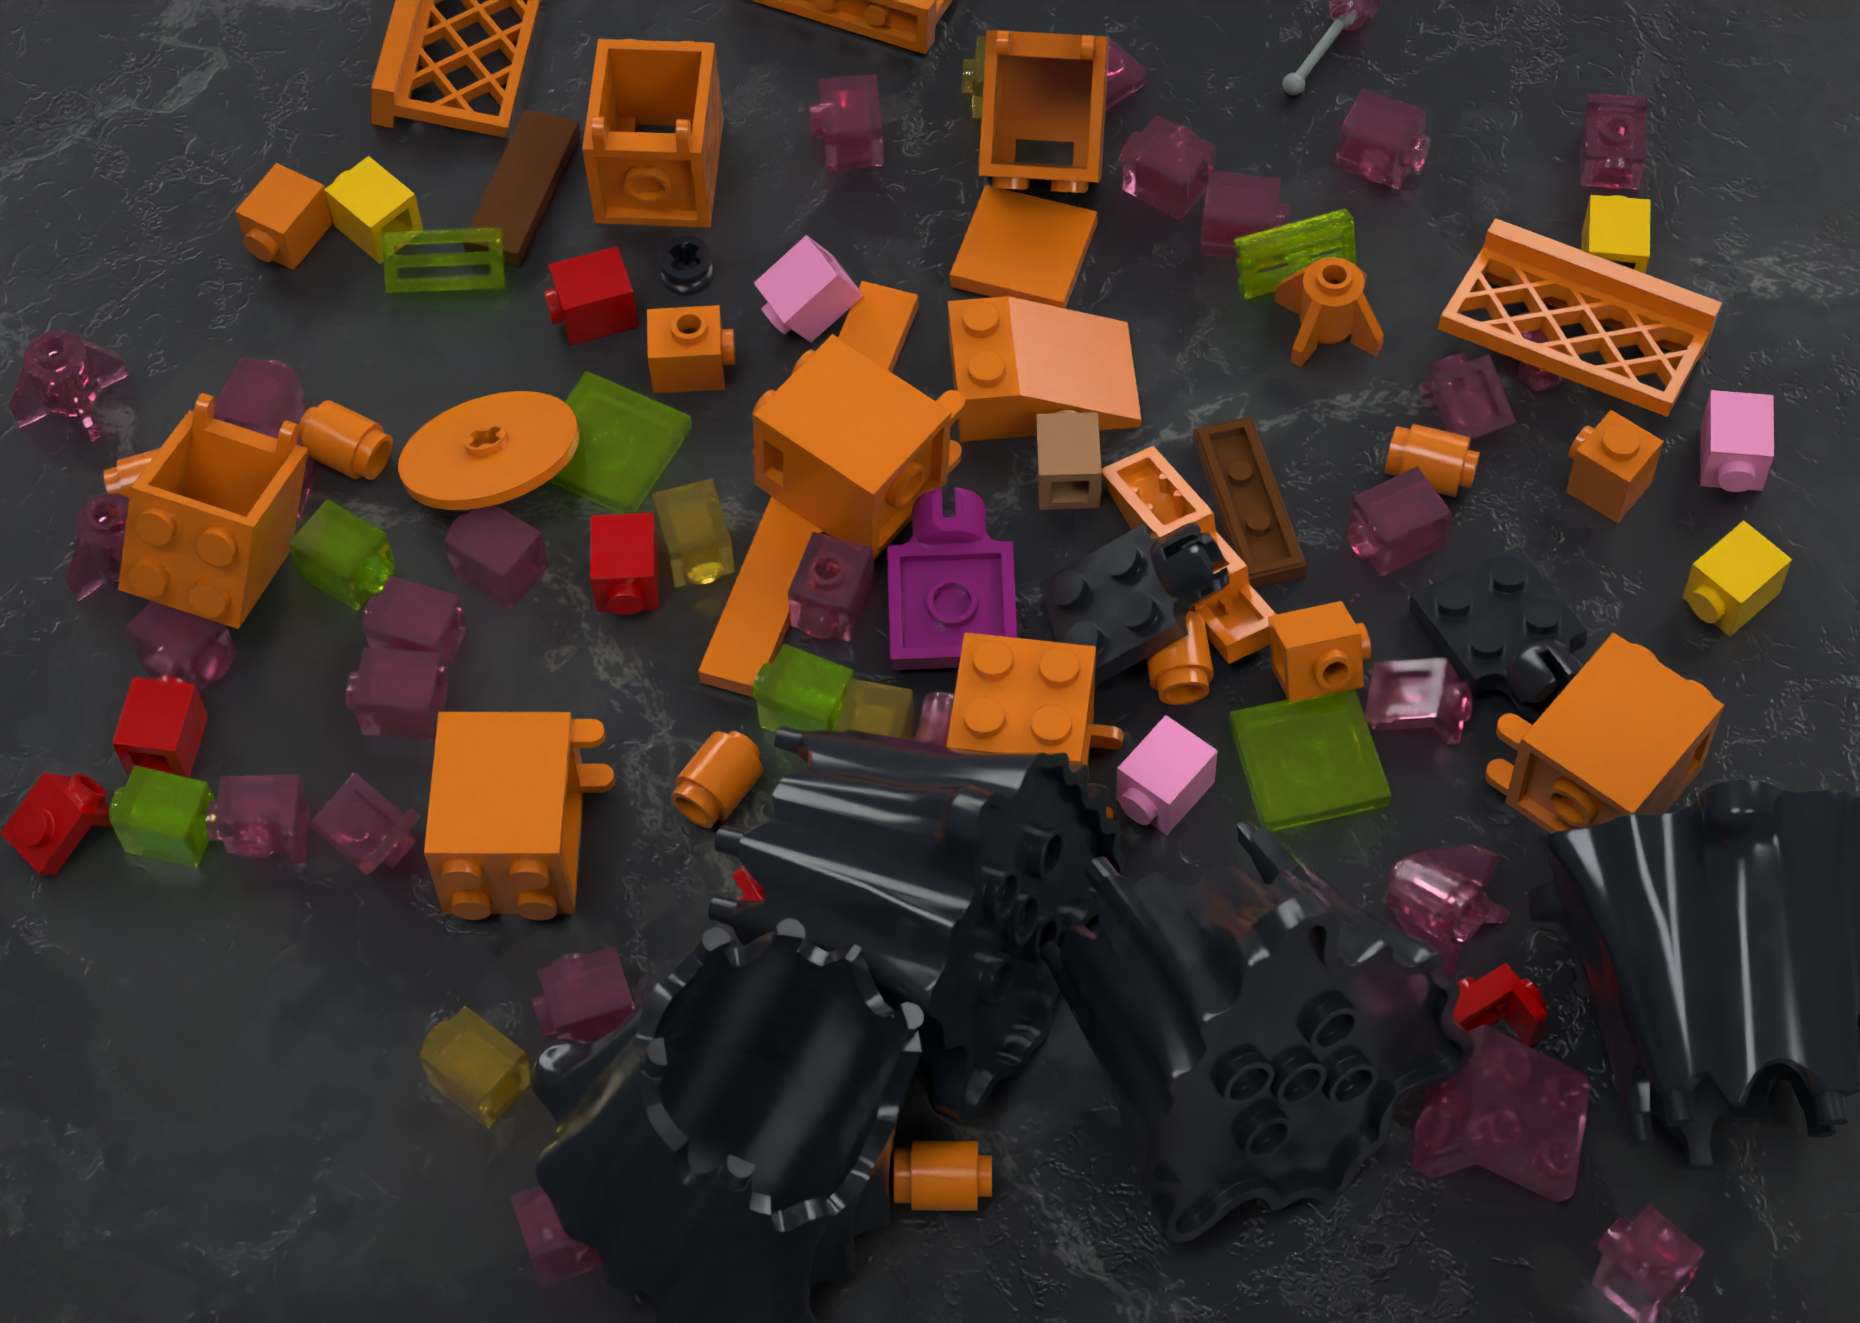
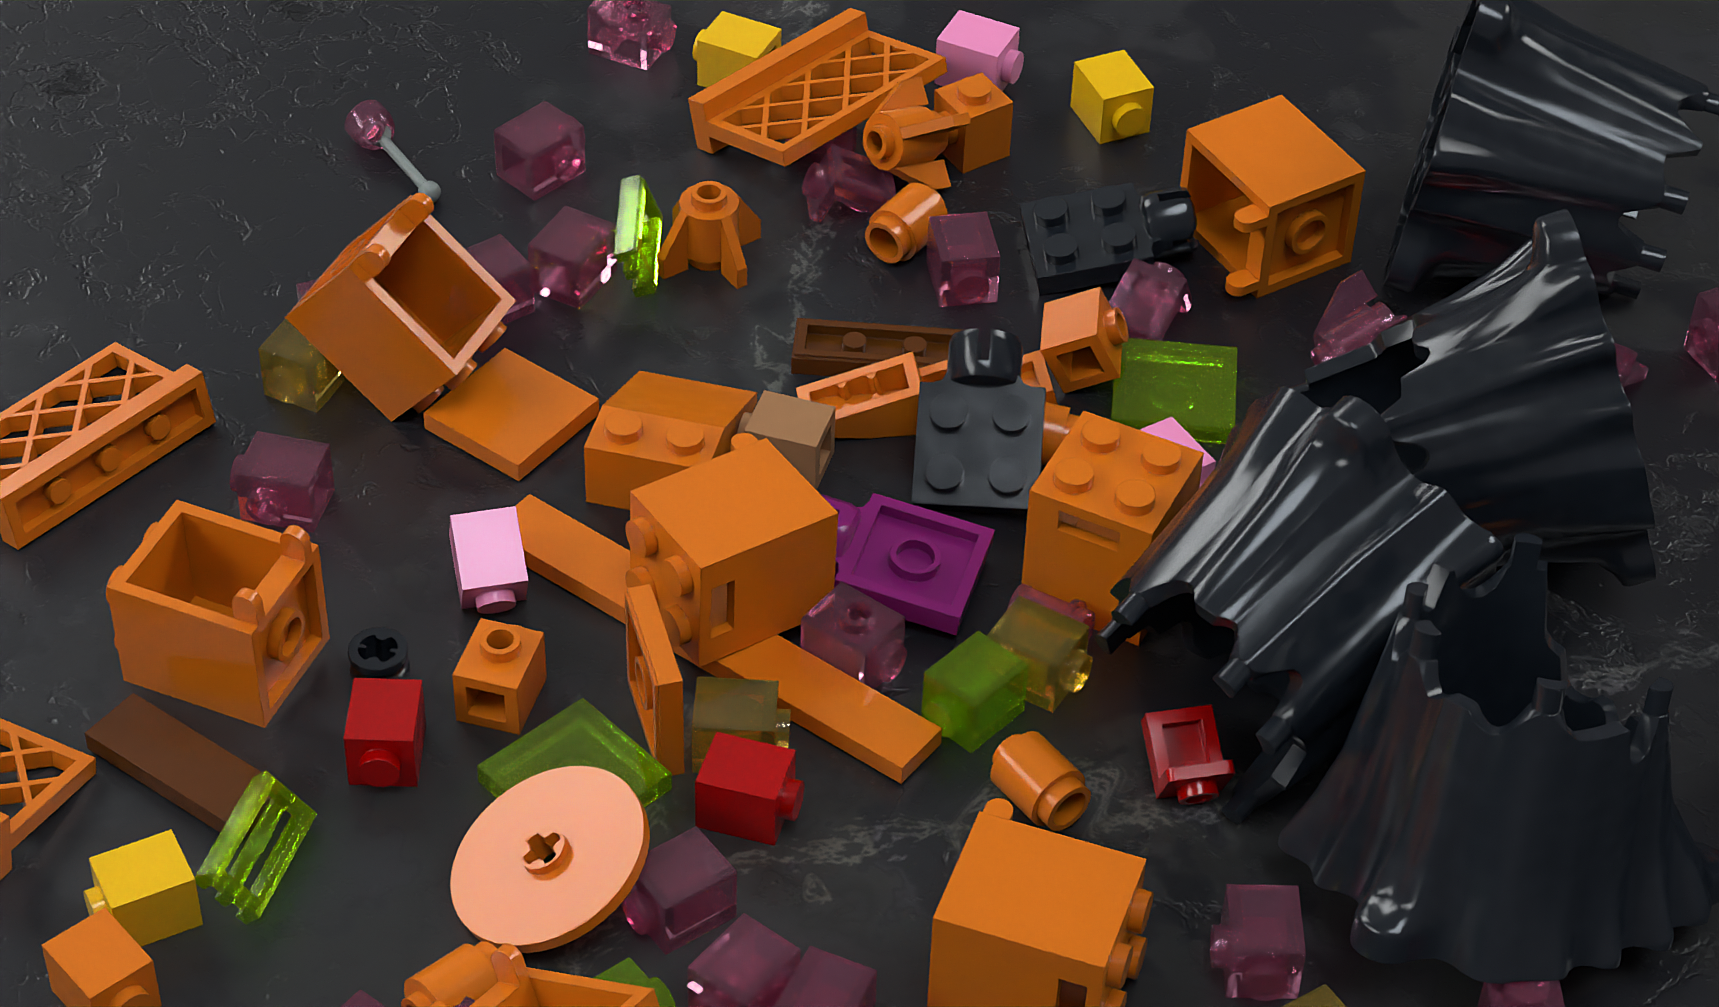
camera: 75 degrees left, 15 degrees down
(696, 443) = (654, 678): none -> orange tile
(1539, 413) = (909, 137): none -> orange brick

